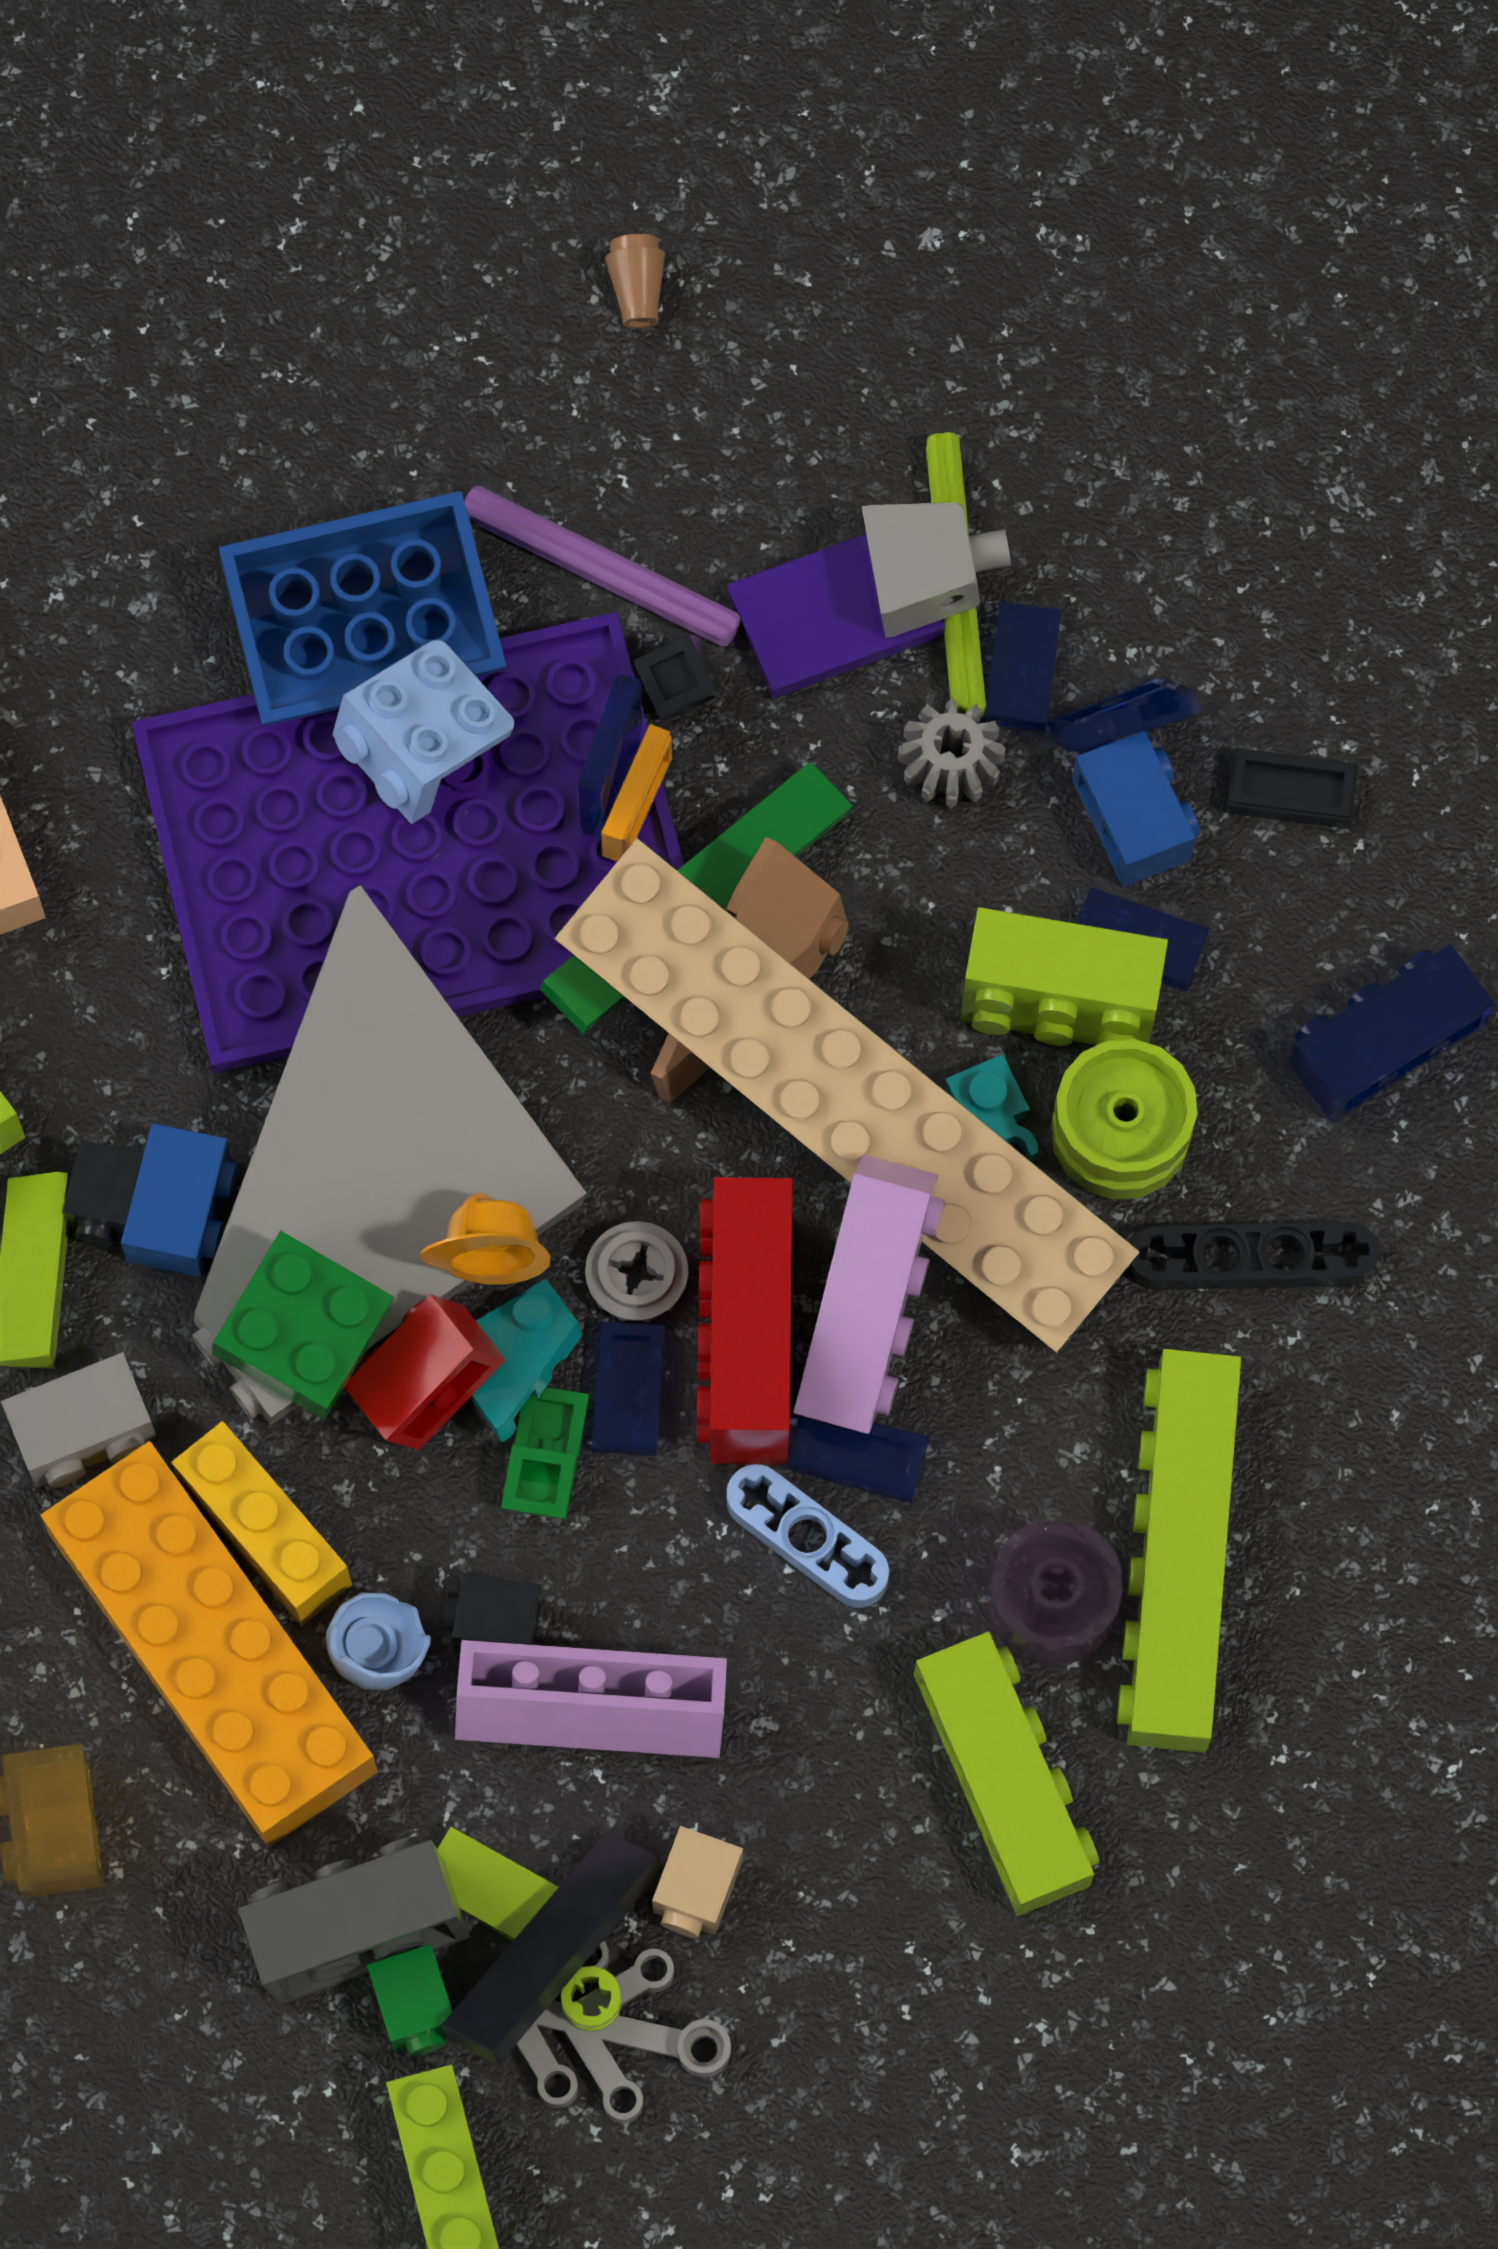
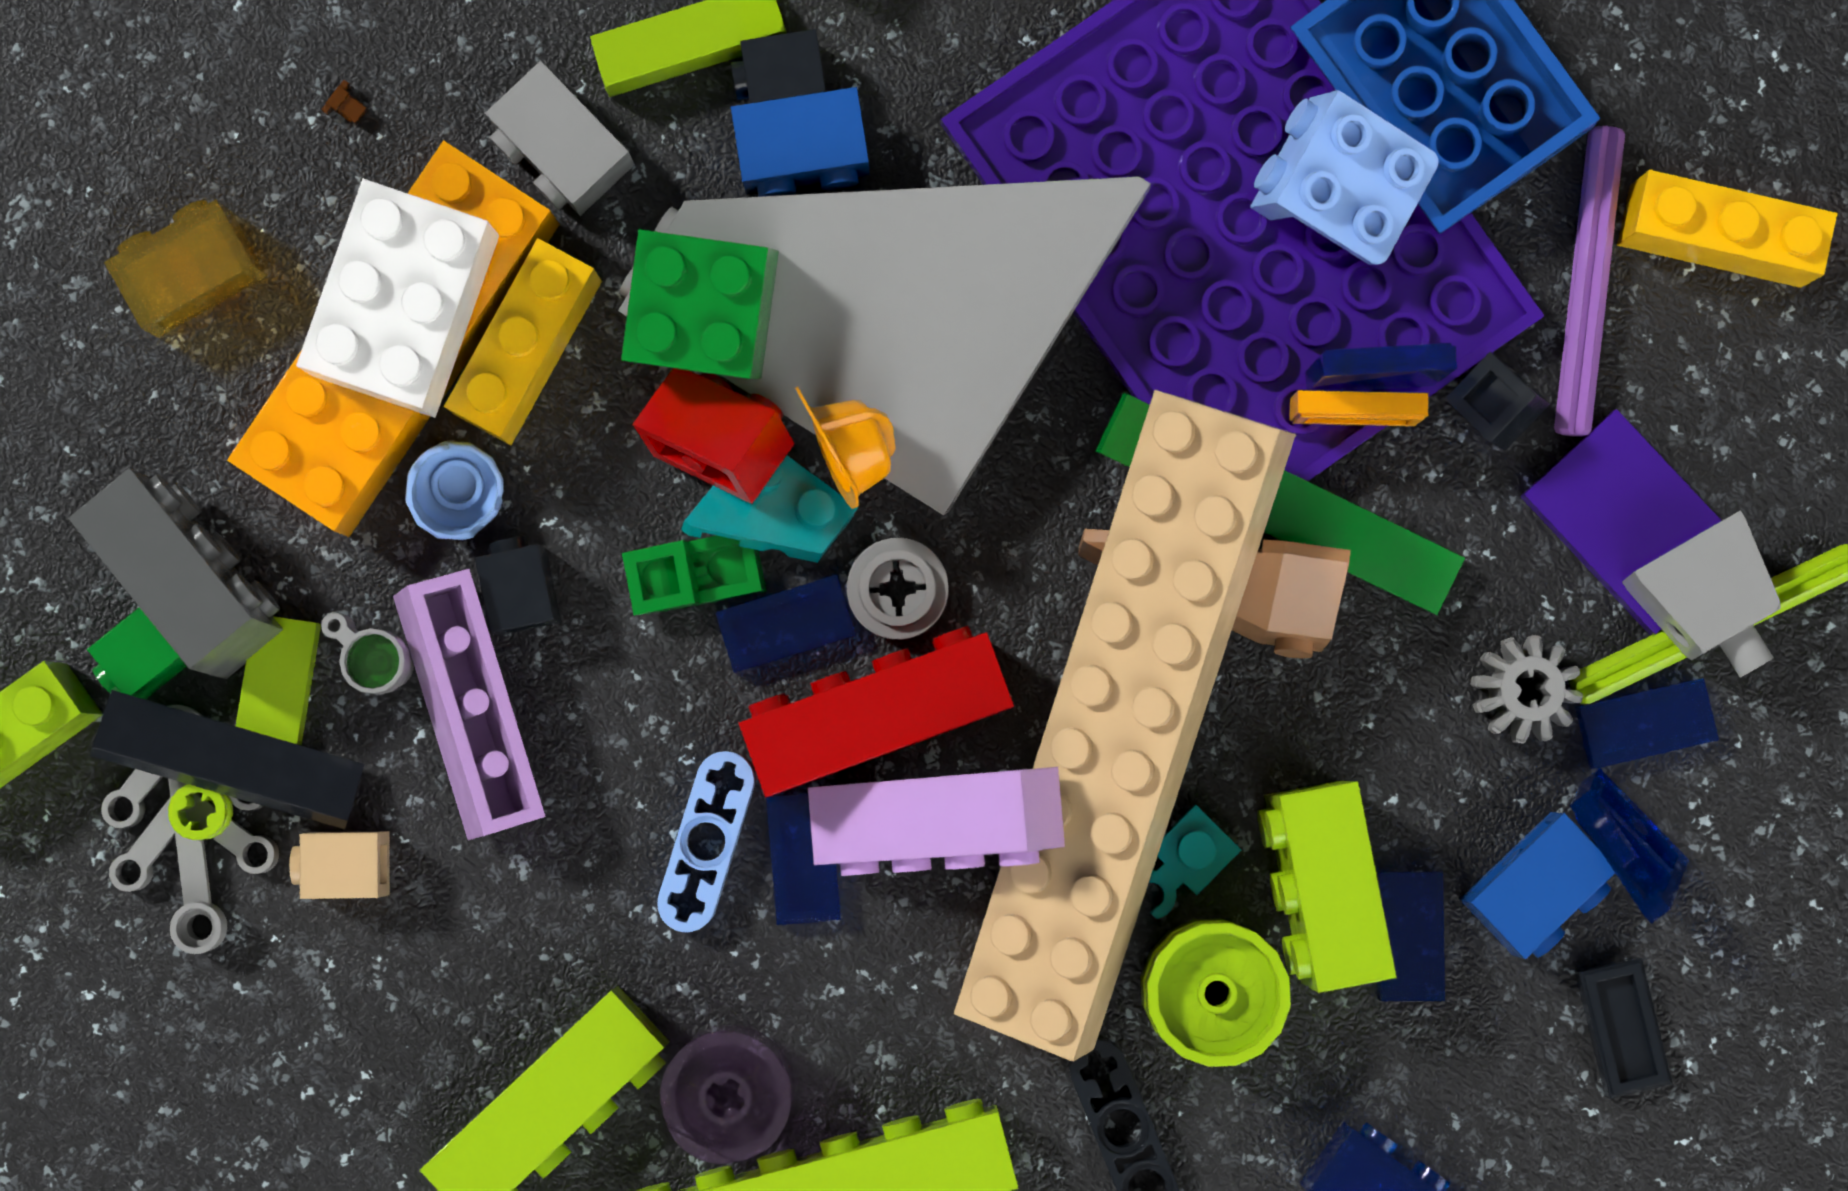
camera: 70 degrees right, 15 degrees up
(182, 1593) = (398, 298): none -> white brick
(511, 1767) = (370, 658): none -> piece
(602, 432) = (1727, 229): none -> yellow brick

